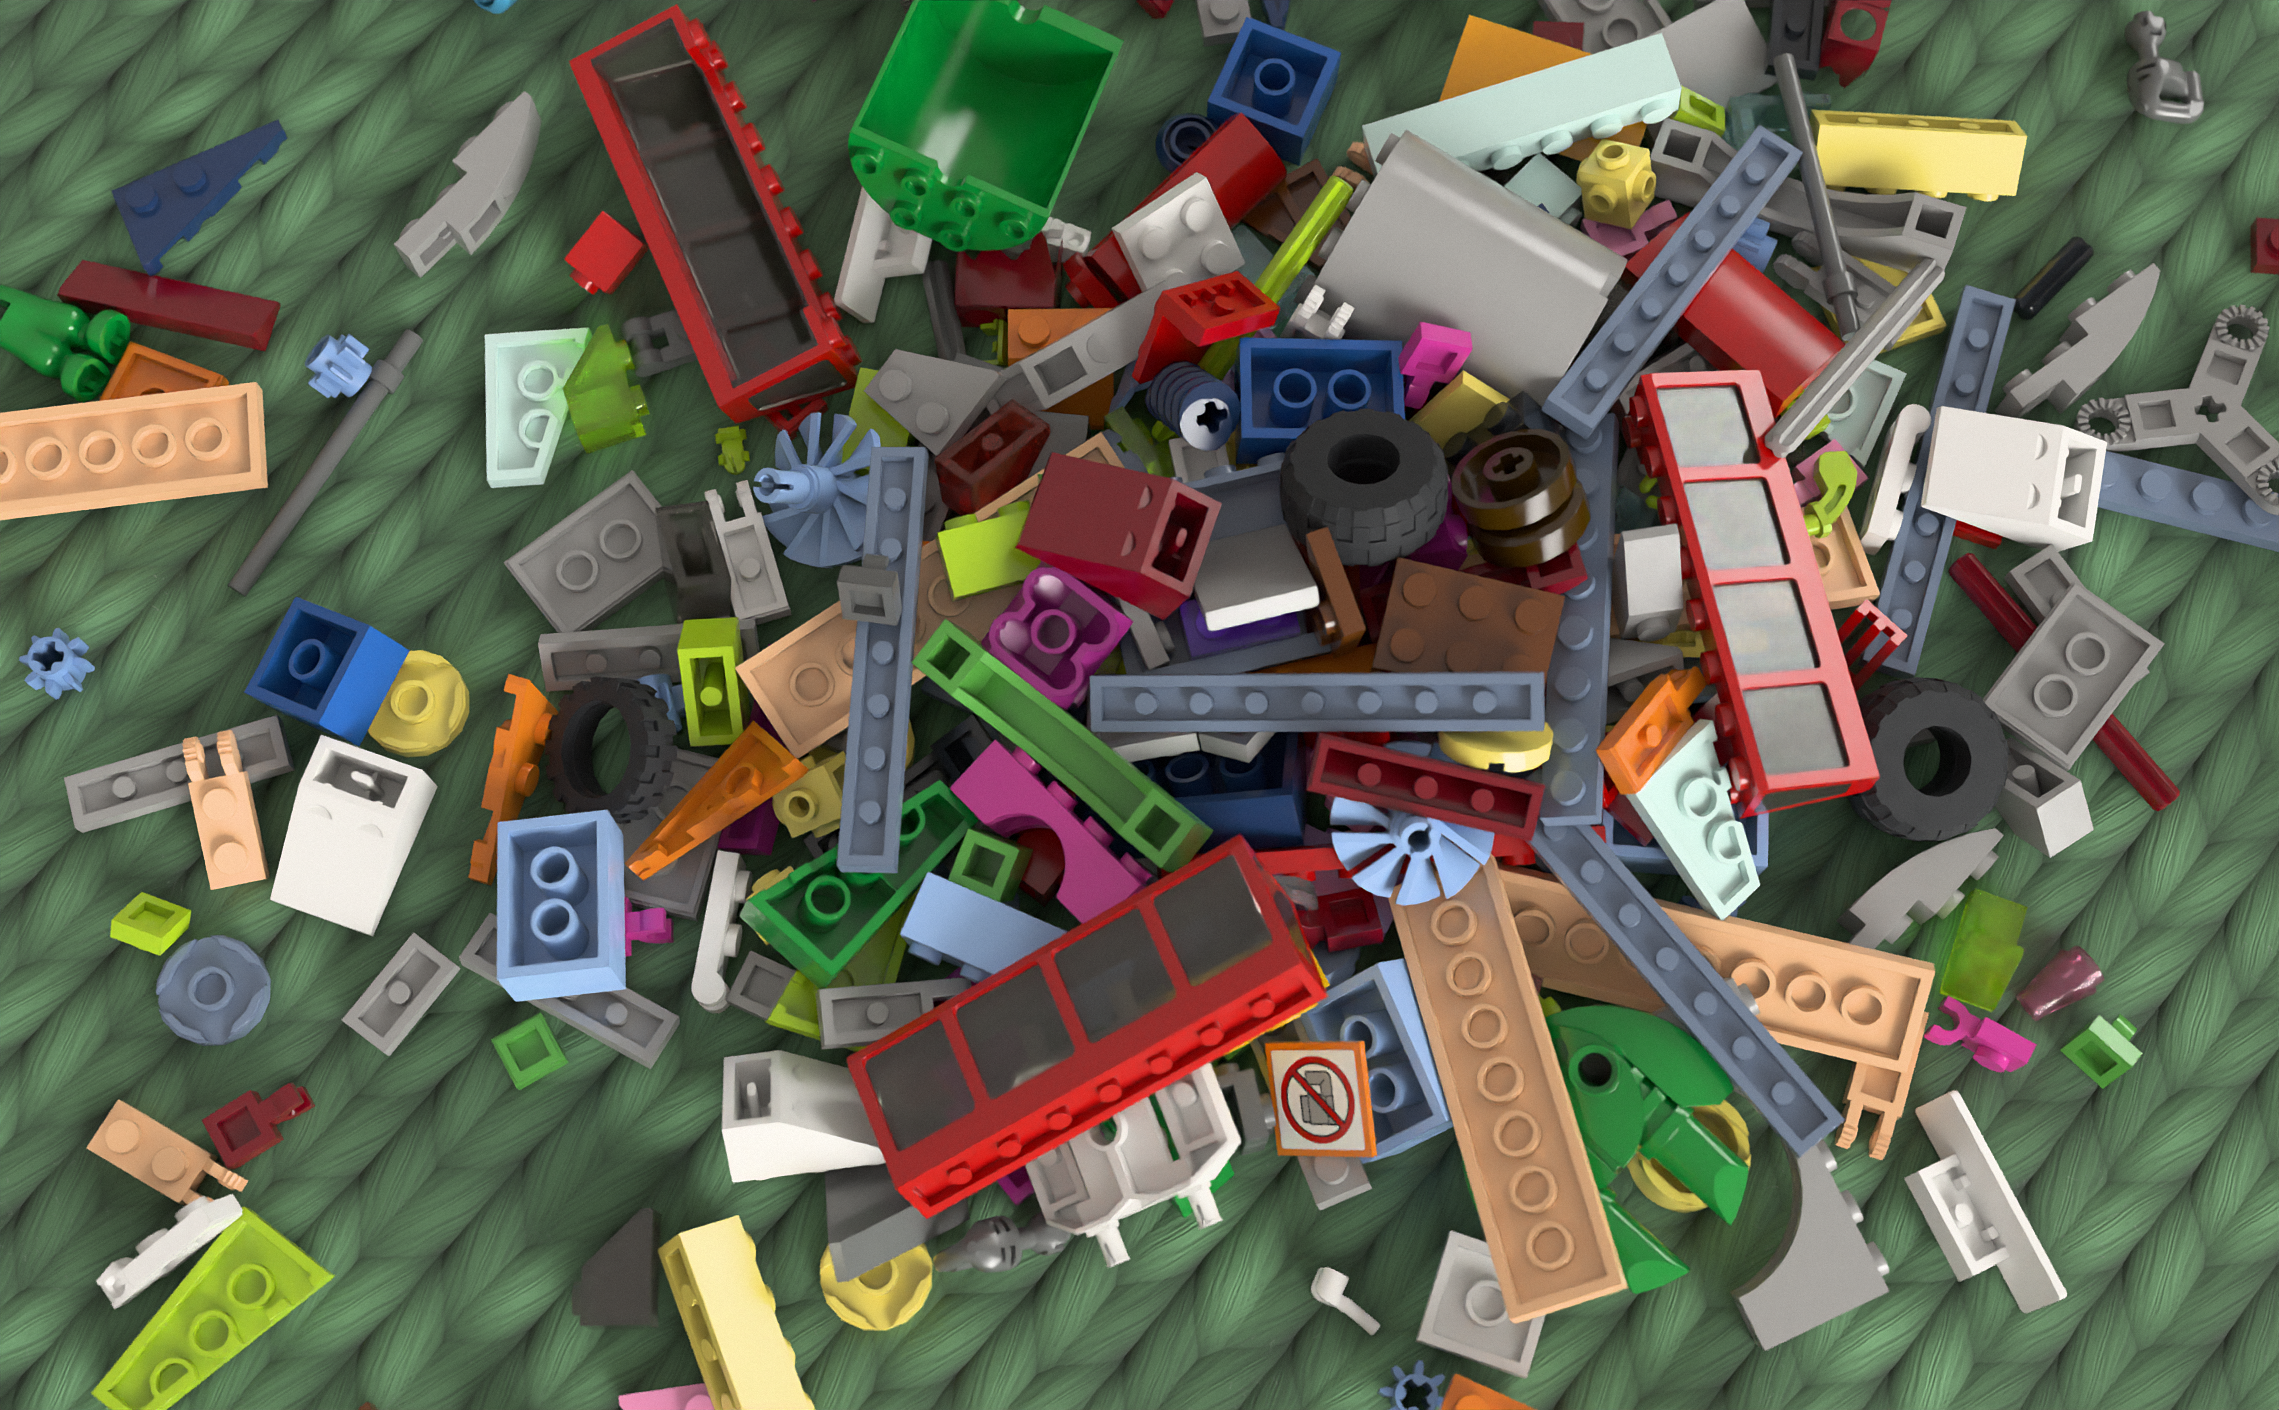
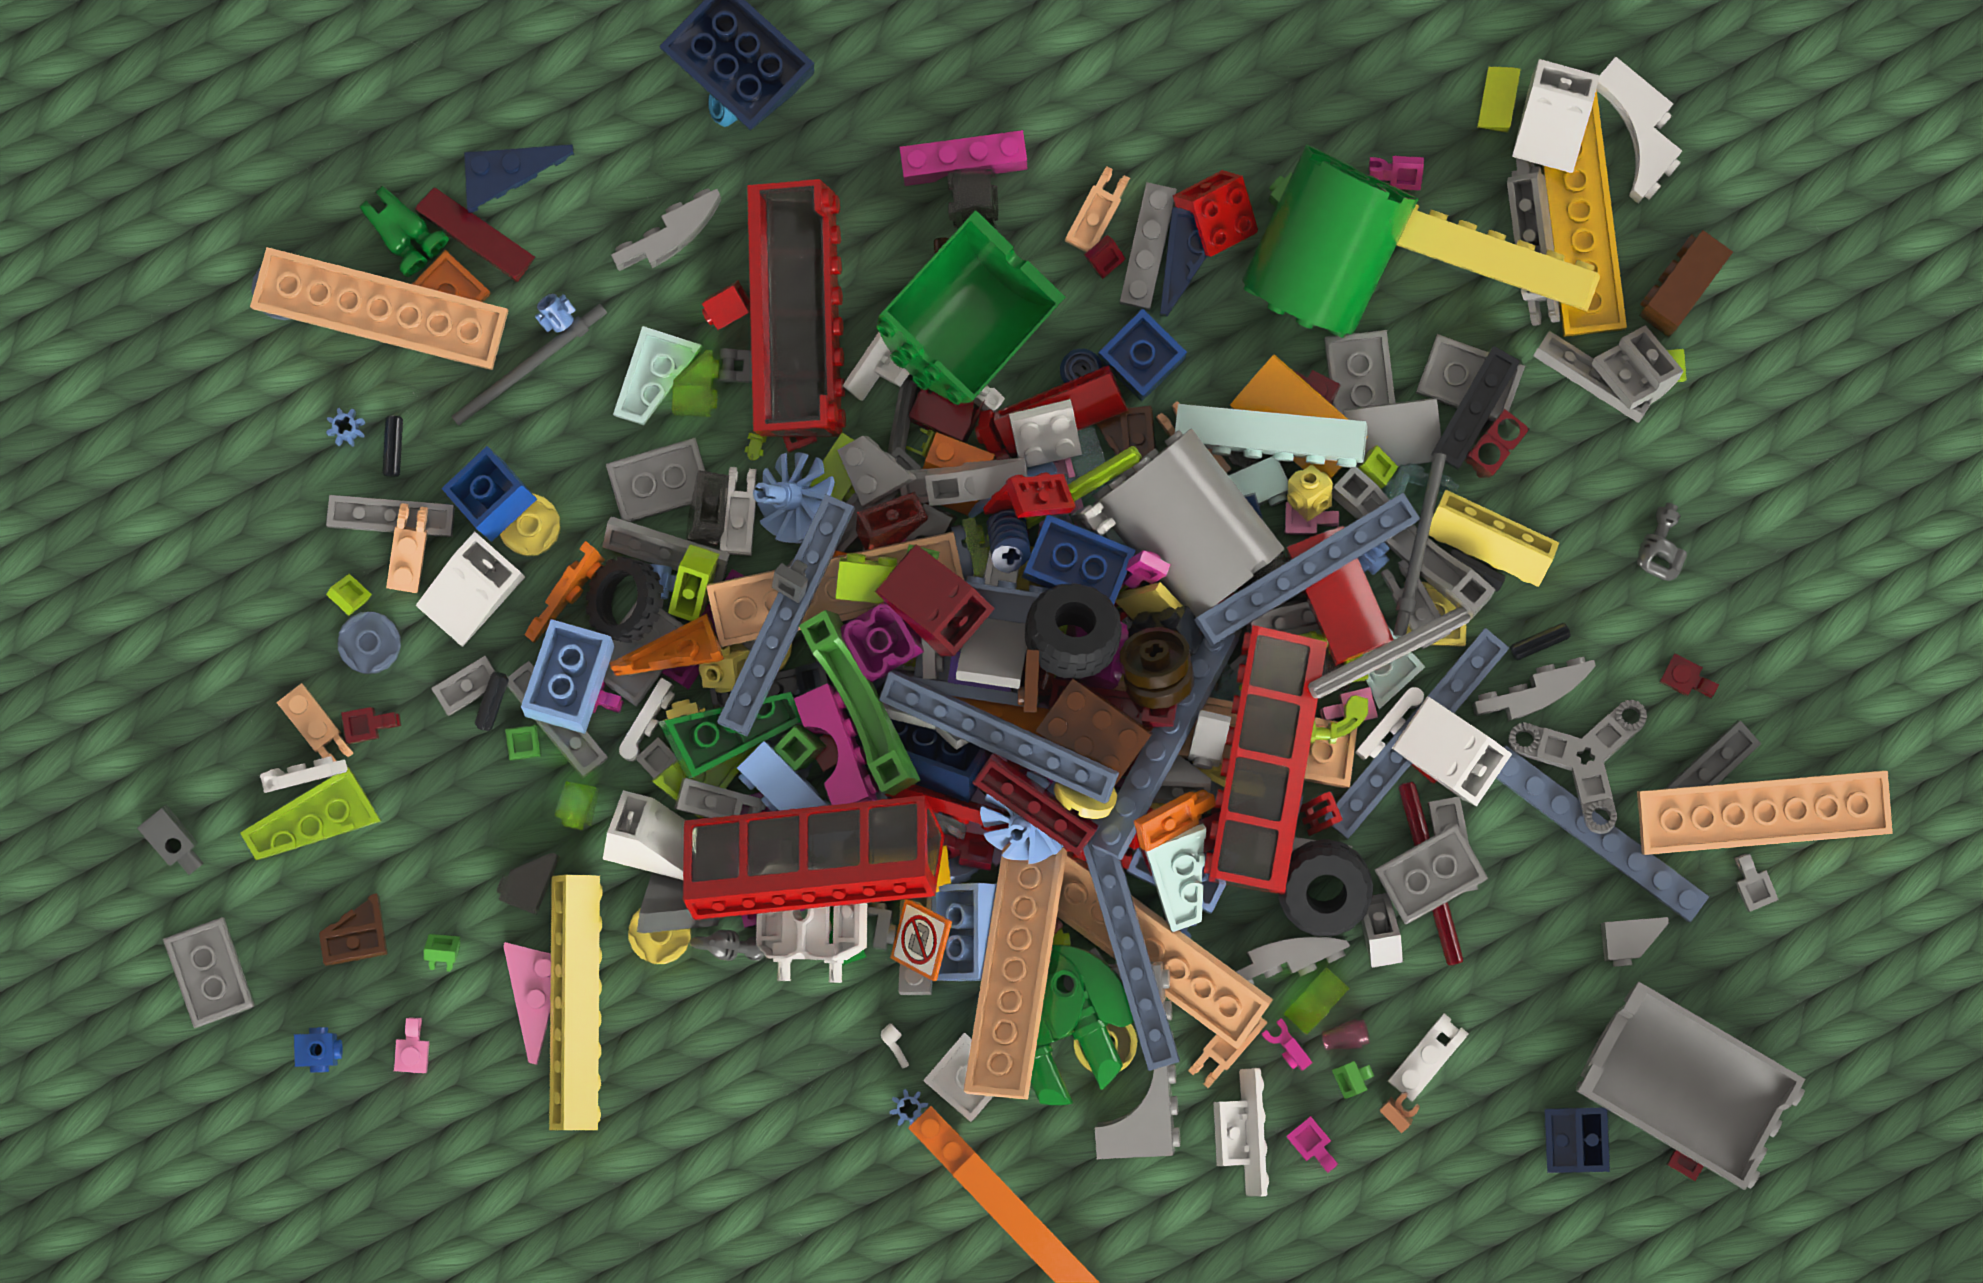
camera: 25 degrees right, 10 degrees up
(146, 666) = (392, 446): none -> black axle
(450, 1001) = (491, 701): none -> black axle
(656, 1114) = (577, 805): none -> clear neon green slope
(2089, 1179) = (1310, 1142): none -> dark pink plate
(2199, 969) = (1427, 1058): none -> white plate
(2204, 1074) = (1397, 1113): none -> nougat tile

